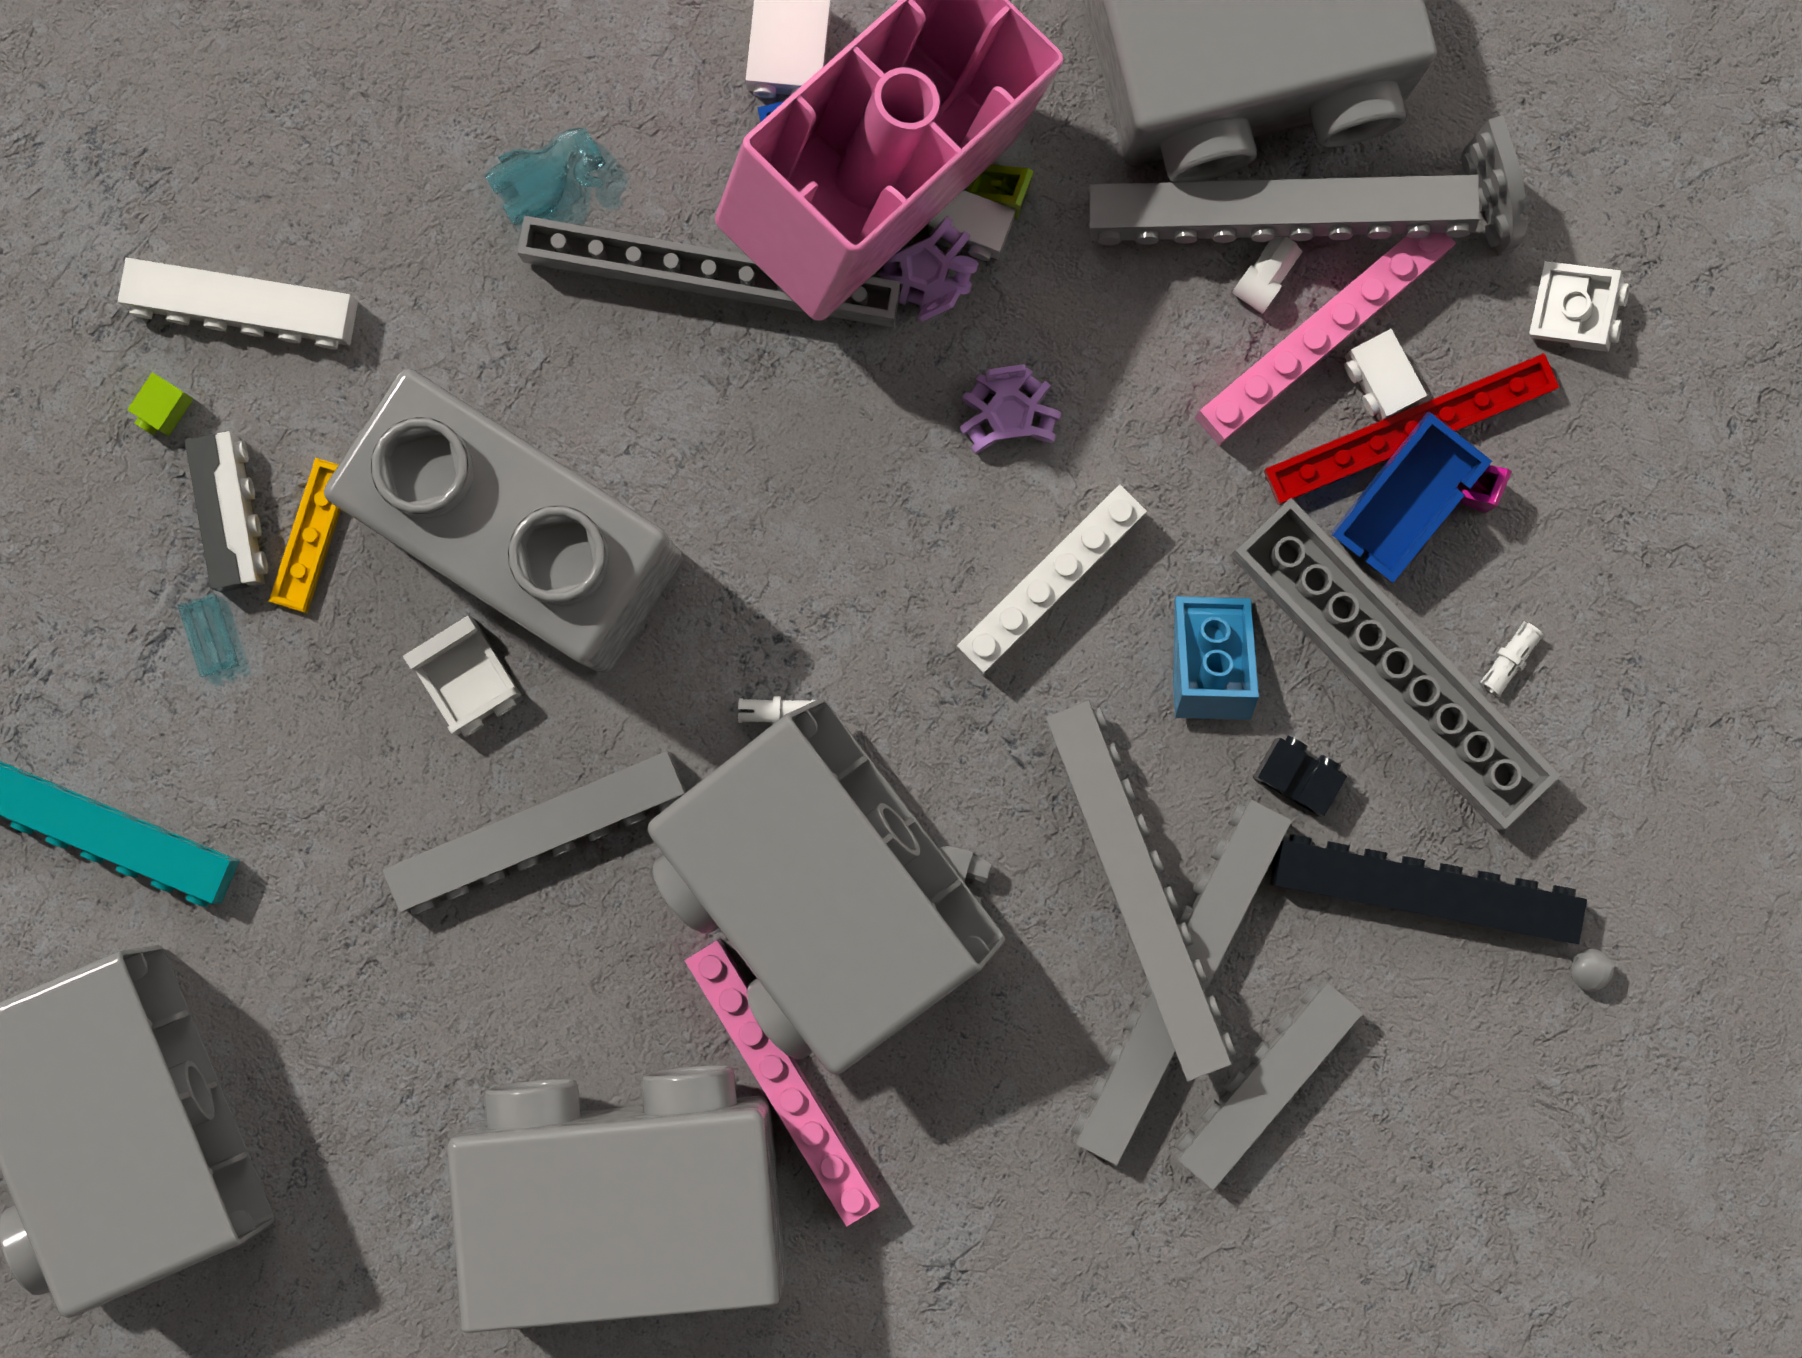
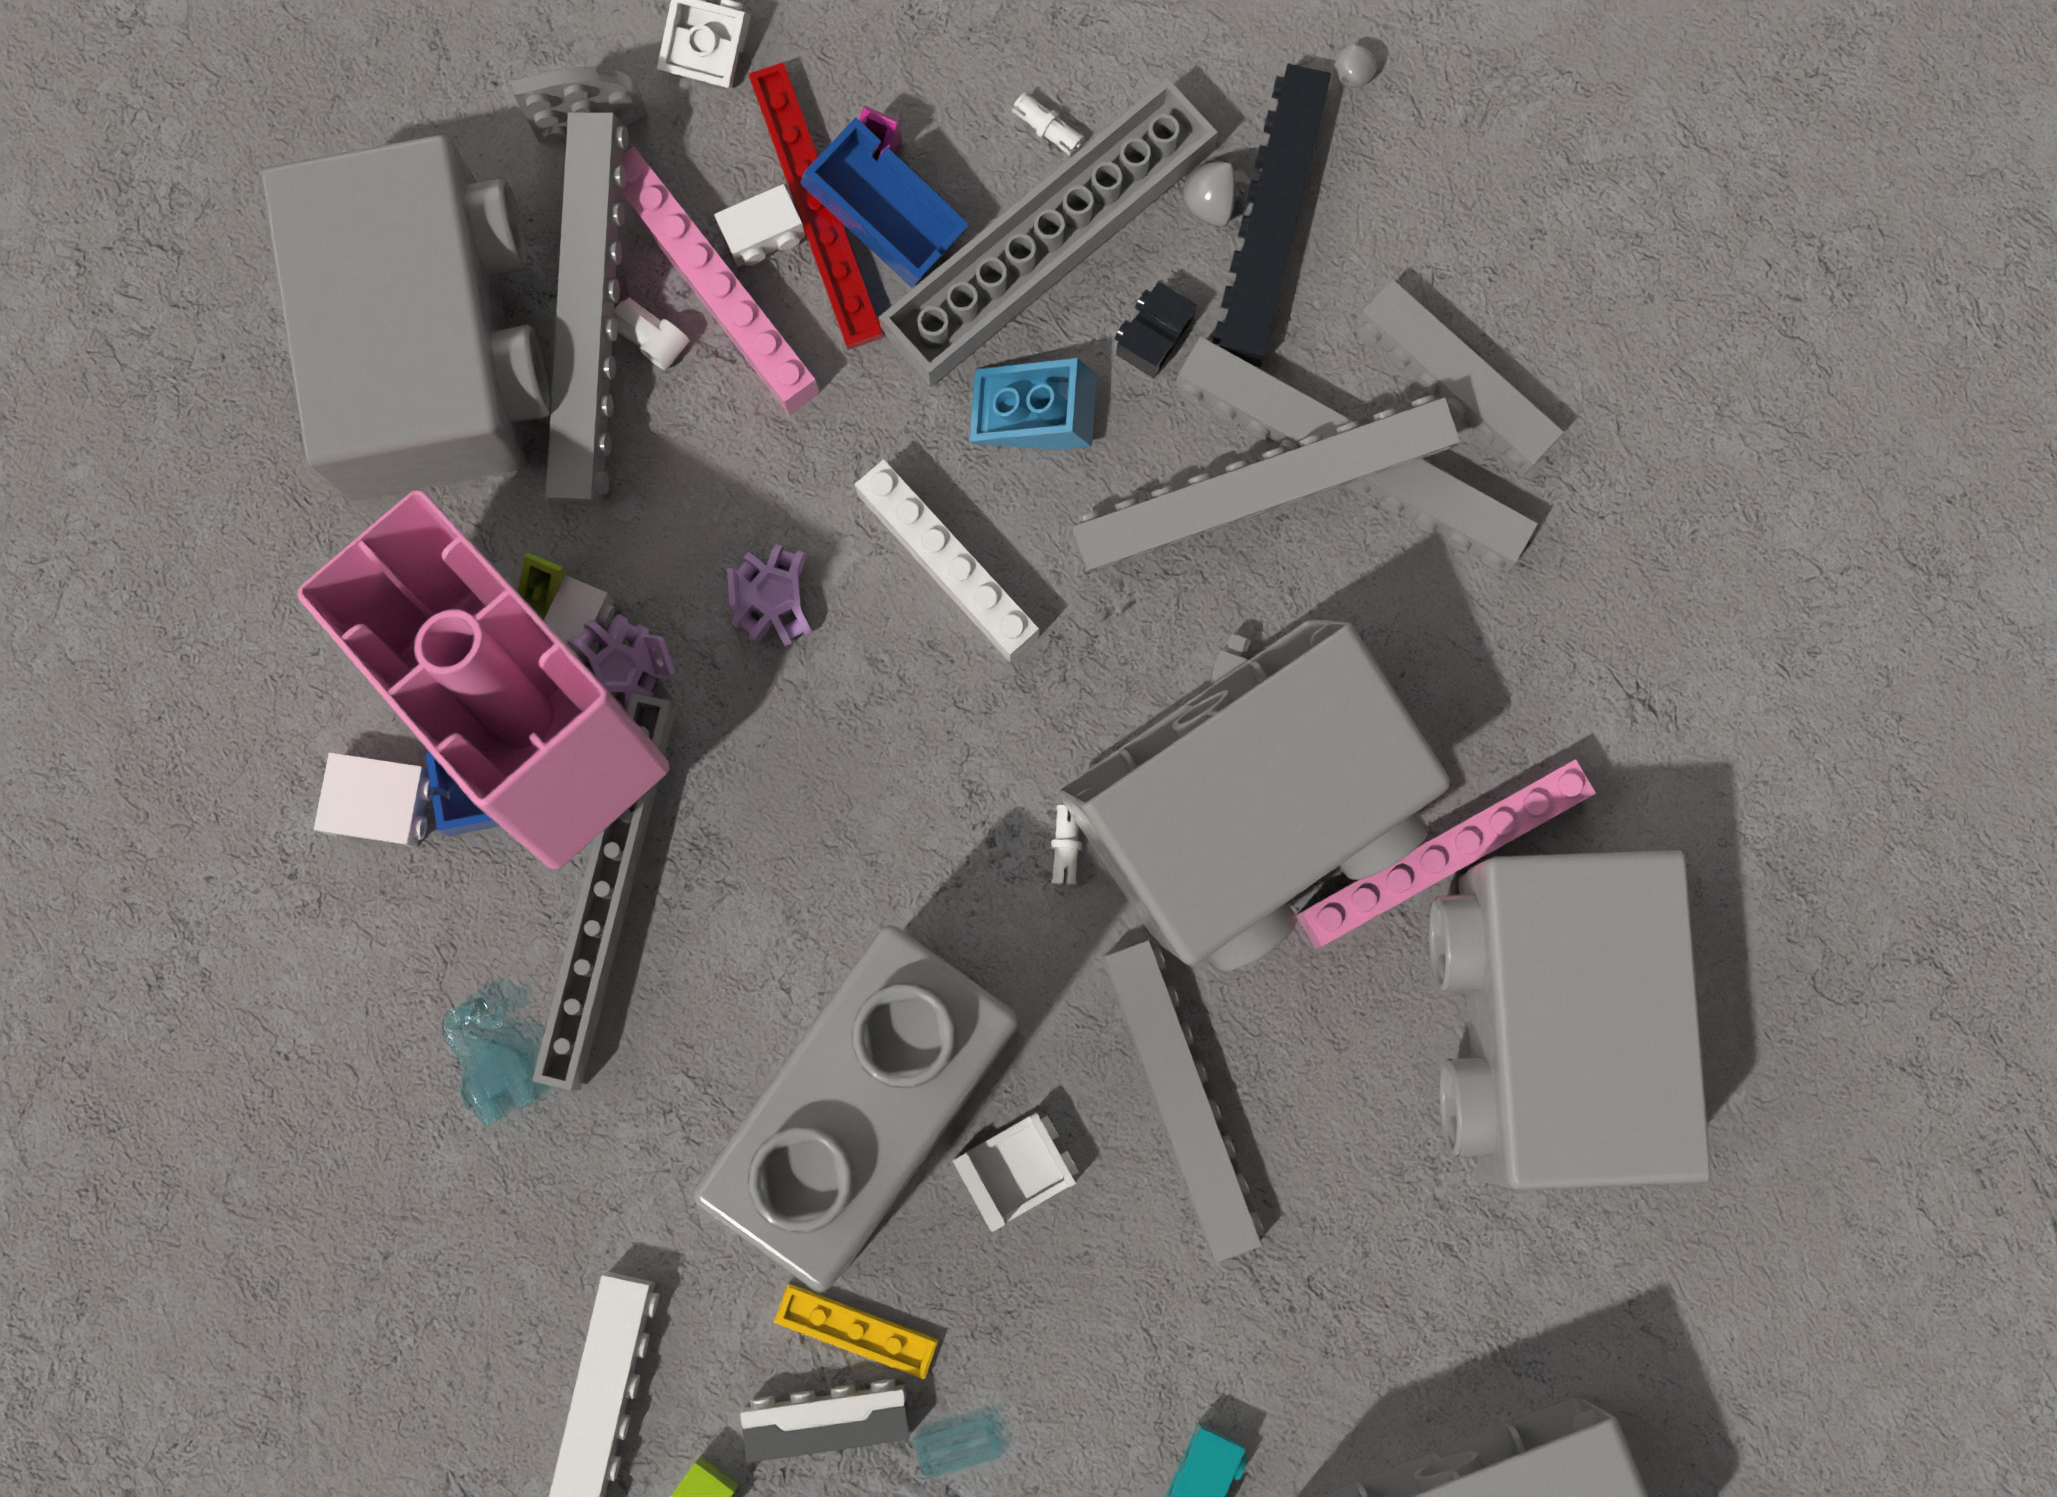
camera: 90 degrees left, 5 degrees down
(1446, 827) = (1212, 191): none -> light grey piece

